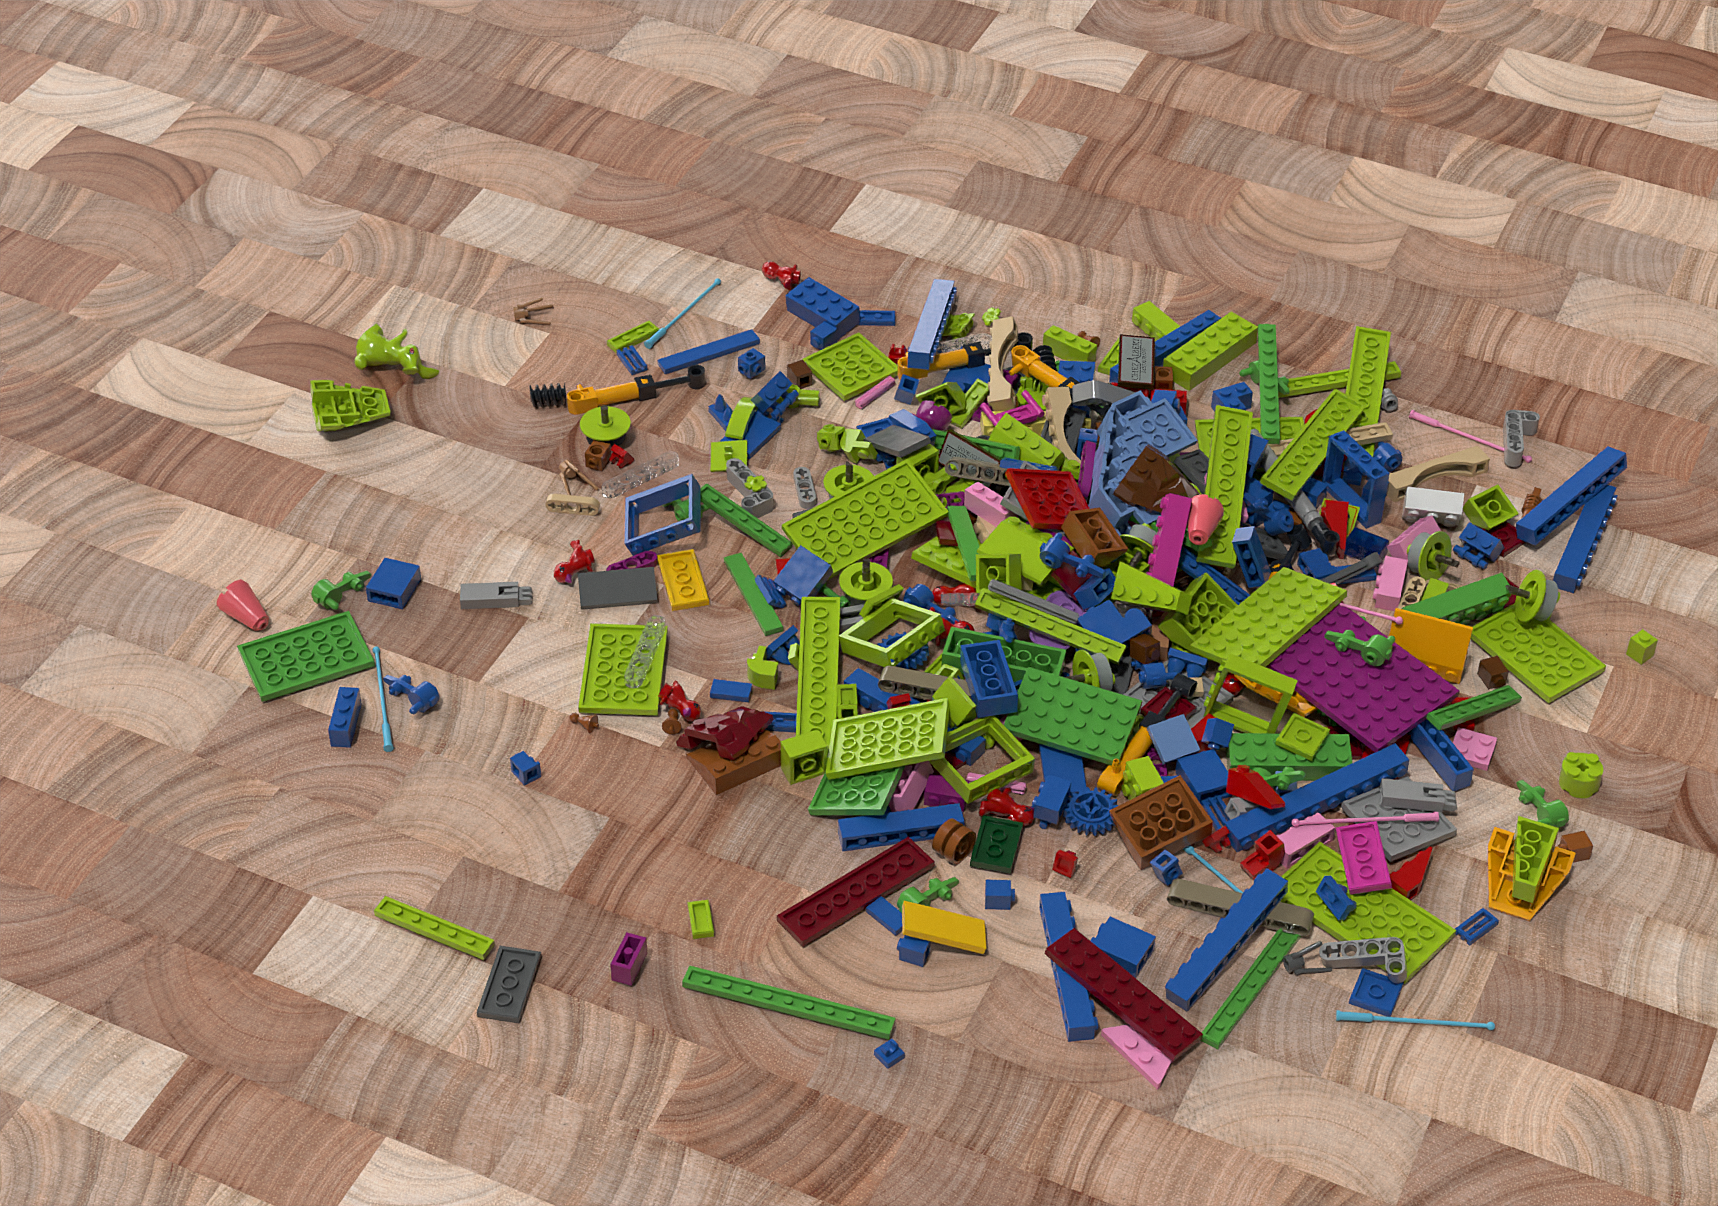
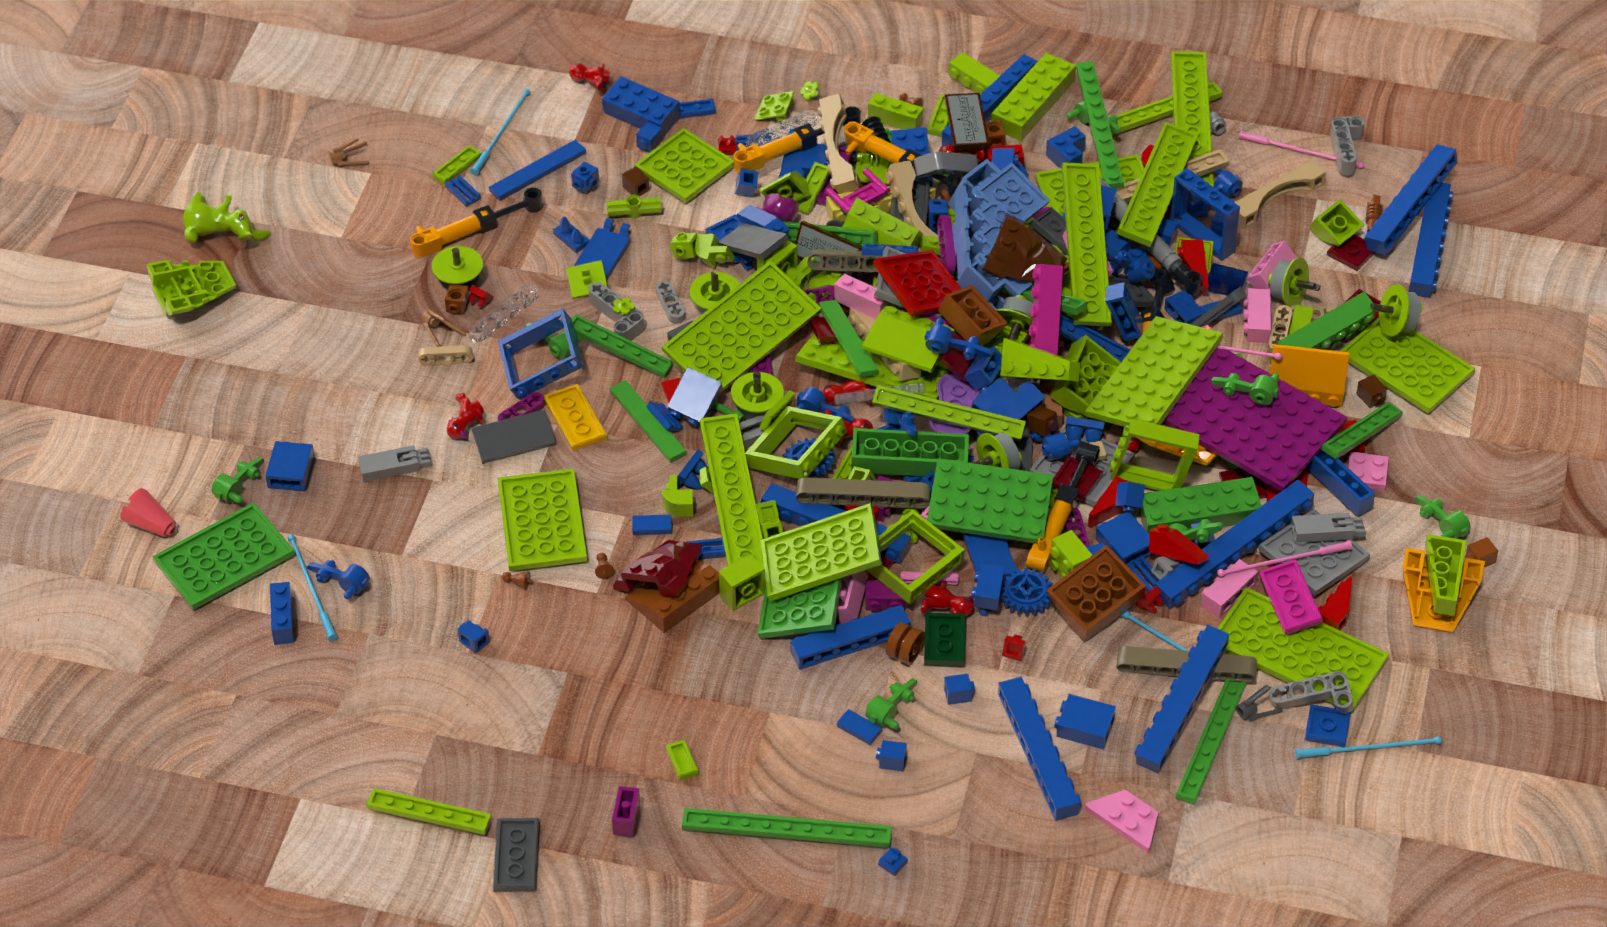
camera: 10 degrees left, 5 degrees up
(548, 395) = (389, 242): black piece -> none
(645, 658) = (559, 505): clear beam -> none
(675, 698) = (601, 542): red animal -> none
(740, 418) = (590, 236): lime slope -> none
(772, 391) = (616, 206): blue brick -> none
(855, 891) = (822, 708): dark red plate -> none
(874, 392) = (714, 189): bright pink axle -> none
(898, 701) = (821, 512): red tile -> none
(932, 324) = (757, 110): brick -> none
(943, 927) = (916, 730): yellow tile -> none
(961, 706) = (884, 508): lime slope -> none
(988, 678) = (904, 477): blue brick -> none
(1000, 567) = (888, 367): lime brick -> none
(1033, 601) = (927, 390): light grey axle -> none
(1123, 994) = (1098, 767): dark red plate -> none
(1168, 872) = (1114, 640): blue brick -> none
(1173, 739) = (1089, 508): medium blue tile -> none
(1203, 518) = (1076, 283): coral cone -> none
(1268, 855) = (1200, 610): red brick -> none
(1302, 736) = (1210, 486): lime tile -> none
(1335, 897) = (1273, 641): blue tile -> none
(1443, 505) = (1272, 229): white brick -> none
(1468, 935) = (1398, 656): blue tile -> none
(1480, 542) = (1334, 260): blue brick -> none
(1581, 774) = (1473, 481): lime brick -> none
(1641, 647) = (1504, 343): lime brick -> none

